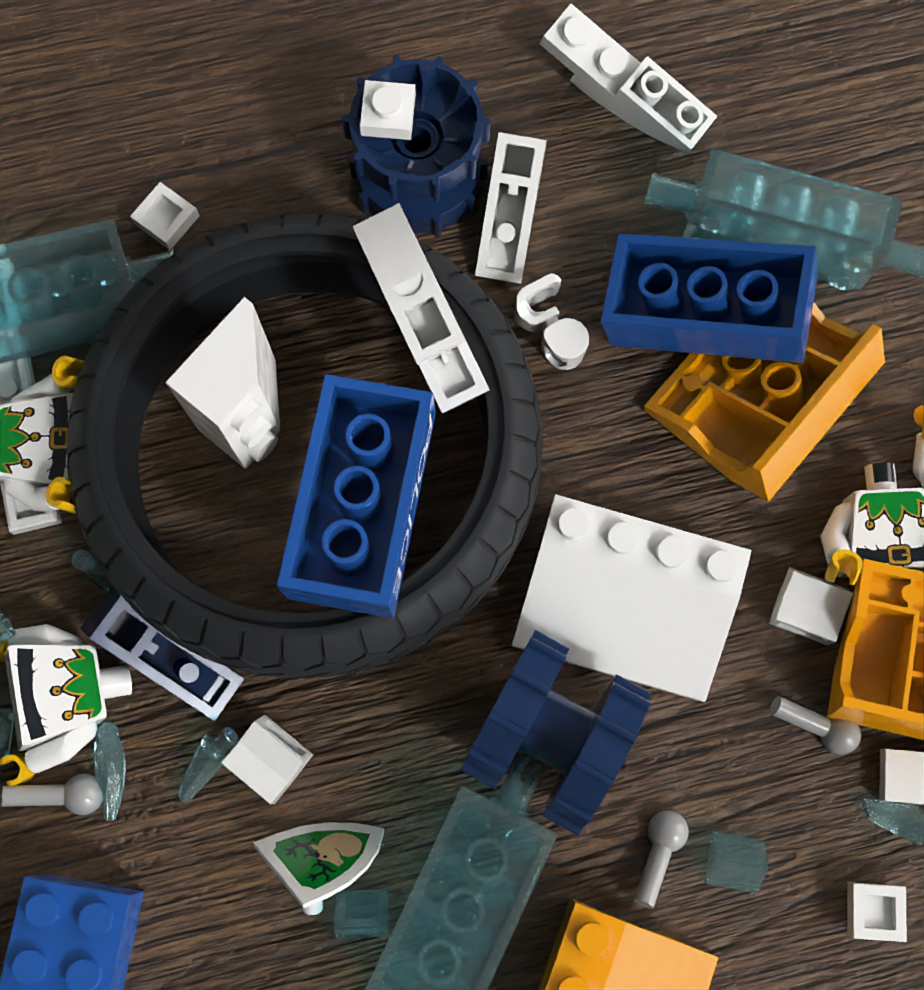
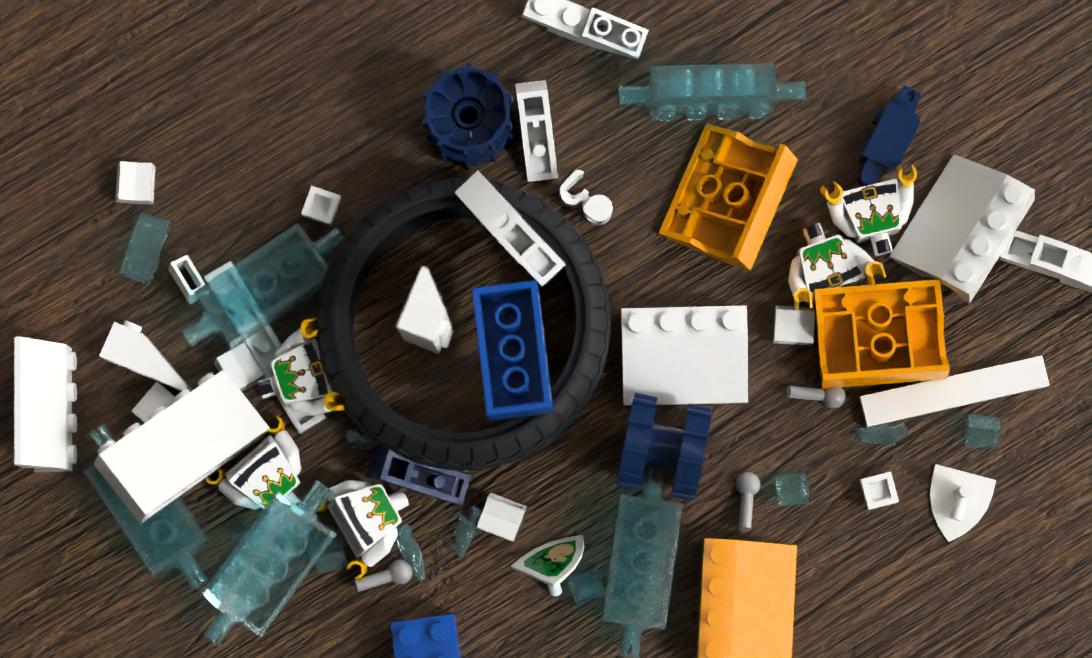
camera: 10 degrees left, 5 degrees up
(387, 110) = (449, 109): white plate -> none
(711, 297) = (677, 157): blue brick -> none

